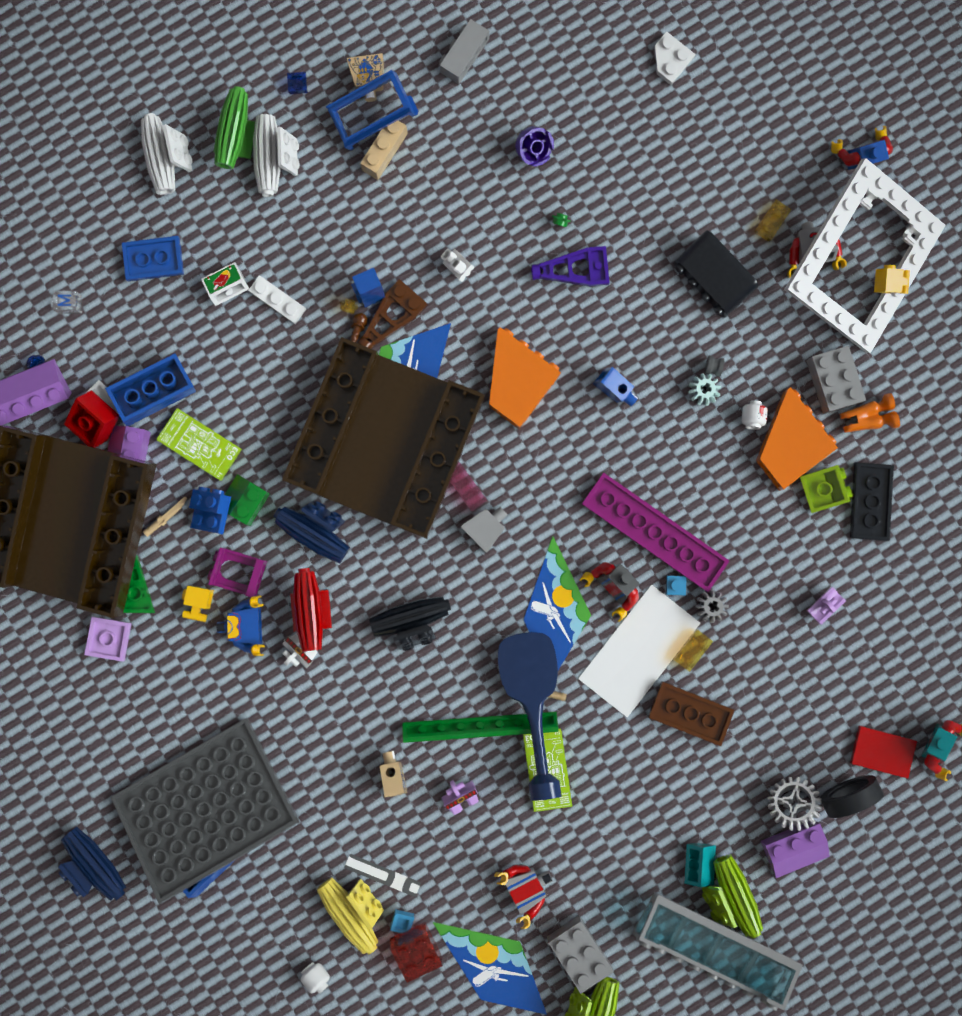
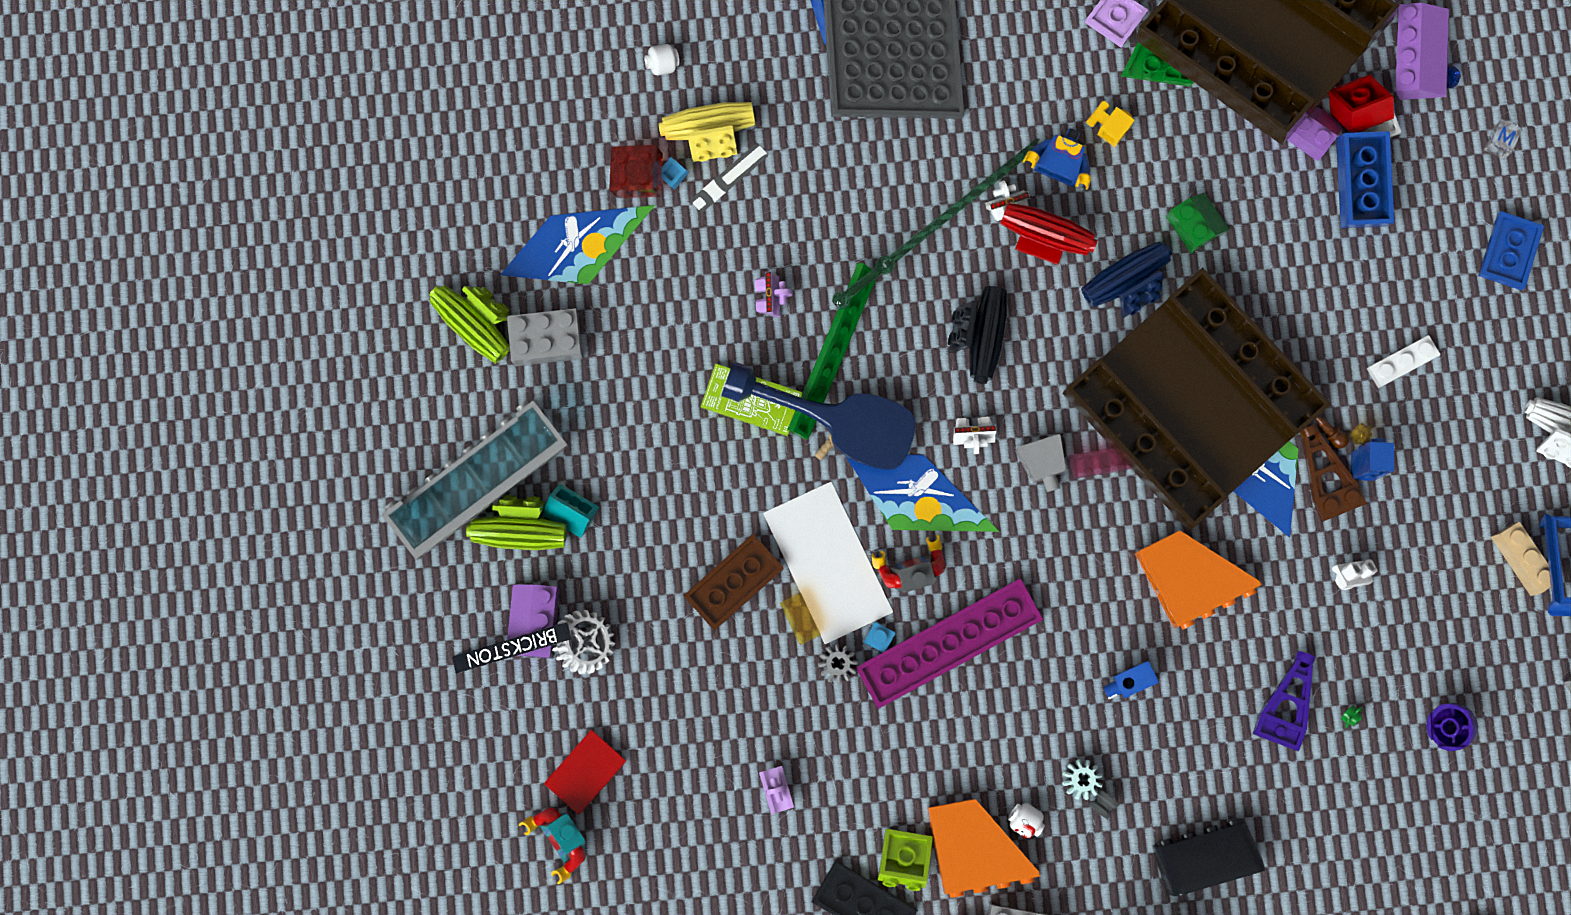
camera: 120 degrees right, 5 degrees down
(162, 520) = (1216, 129): tan piece -> none
(199, 444) = (1280, 204): lime tile -> none
(209, 509) = (1204, 181): blue plate -> none
(215, 577) = (1109, 197): magenta panel -> none
(225, 284) = (1447, 313): brick -> none
(392, 785) = (819, 234): tan torso -> none
(438, 740) = (842, 299): none -> clear green bar
(492, 587) = (974, 436): none -> white hips
(525, 889) = (640, 314): torso -> none
(827, 855) = (511, 647): none -> black sticker
(852, 796) = (561, 705): black tyre -> none

